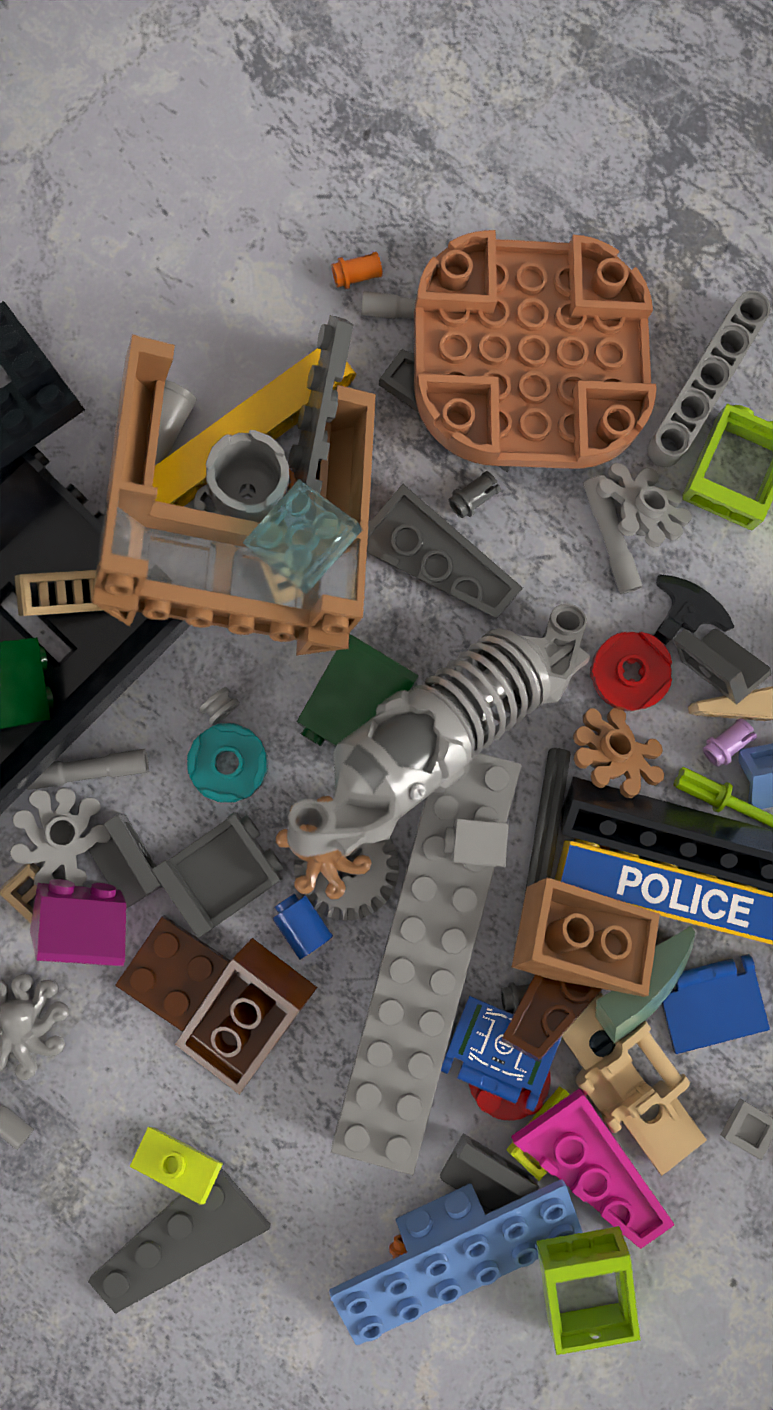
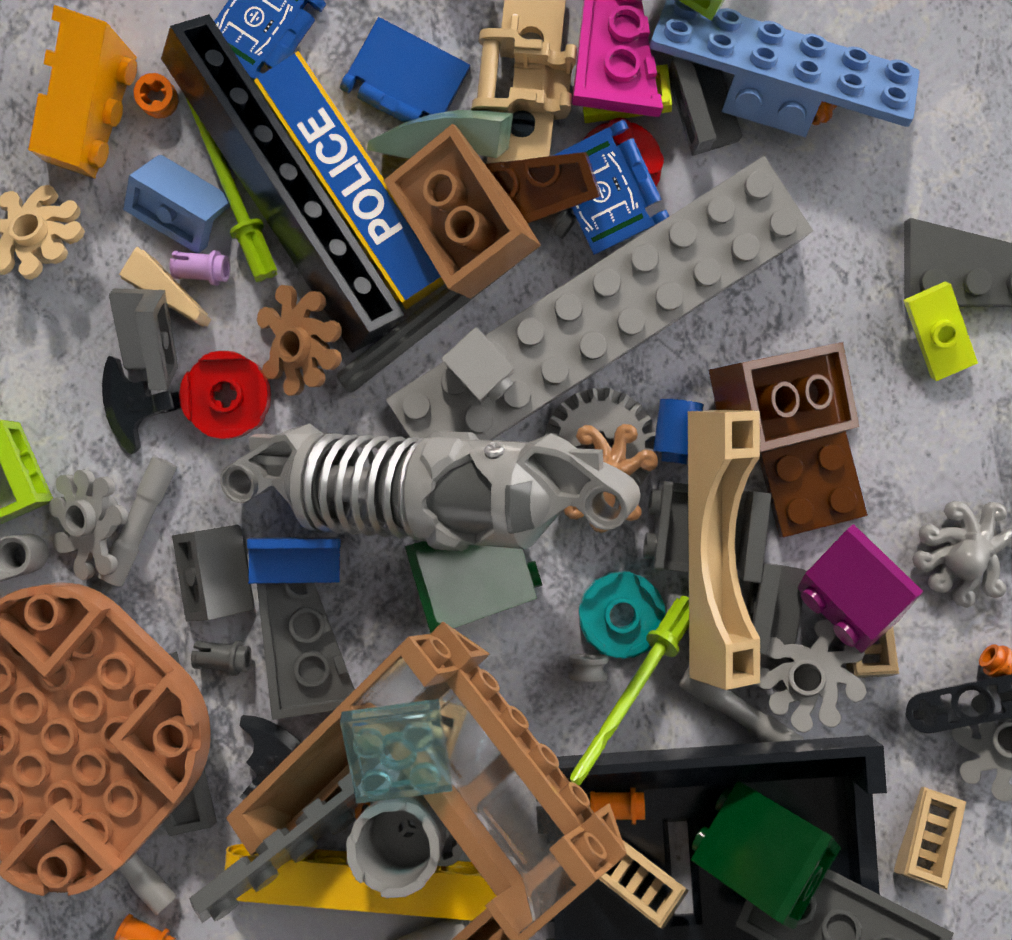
camera: 135 degrees left, 5 degrees up
(114, 633) = (623, 804): none -> orange pin
(182, 769) = (663, 642): none -> lime piece
(253, 927) = (721, 634): none -> tan arch
(387, 464) = (271, 747): none -> black piece
(484, 601) = (294, 560): none -> blue panel
(530, 544) = (212, 573): none -> dark grey panel

